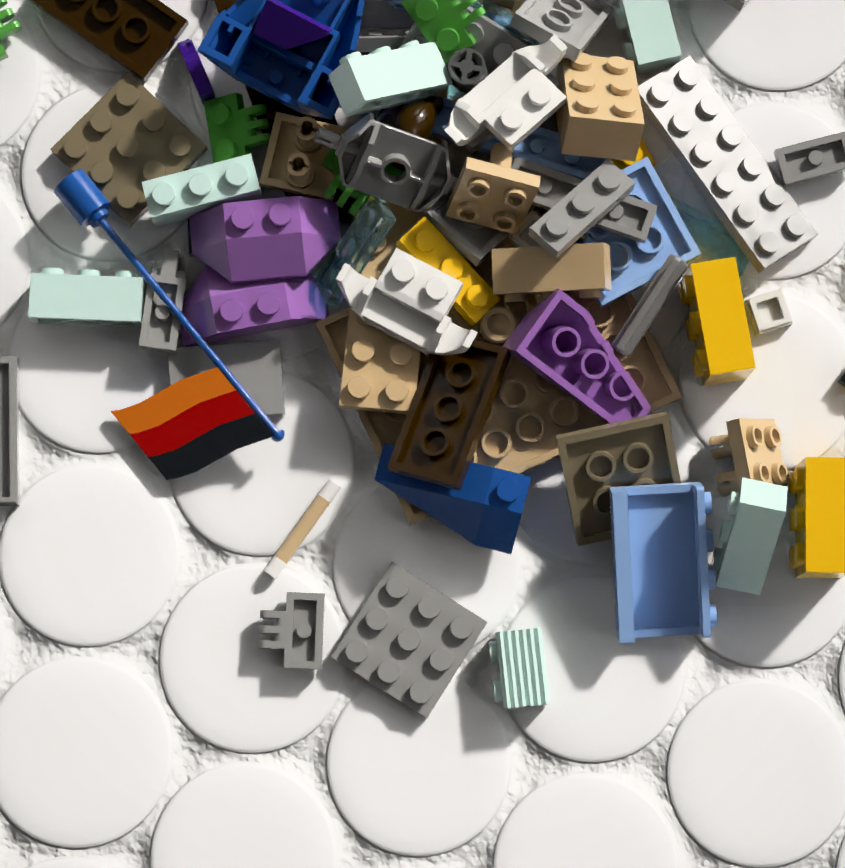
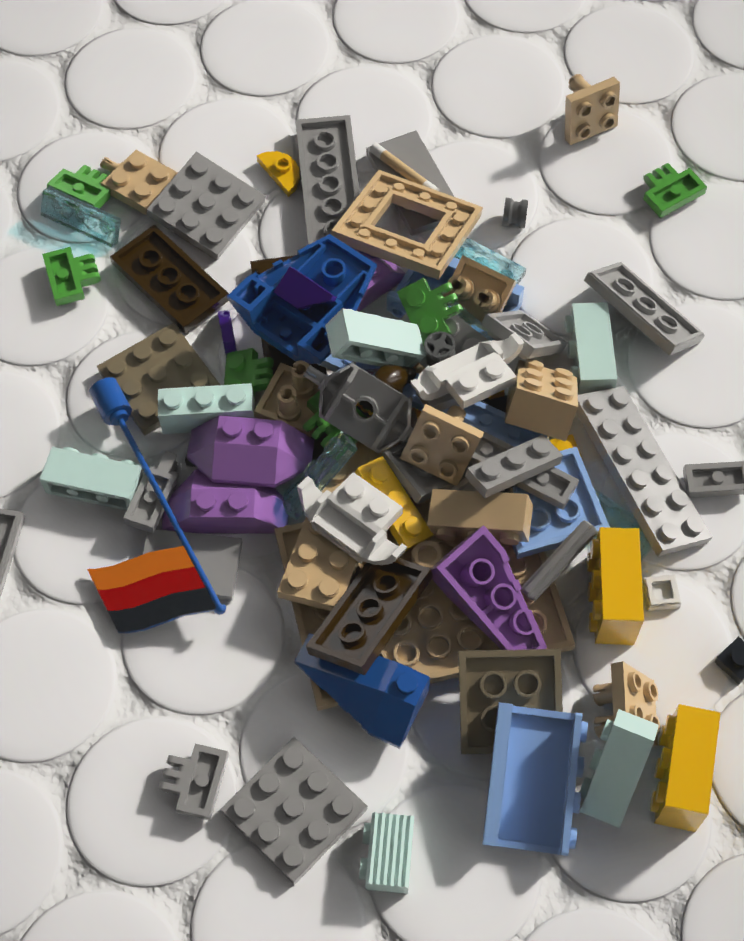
camera: 10 degrees right, 20 degrees down
(302, 529) = (222, 696): tan bar -> none

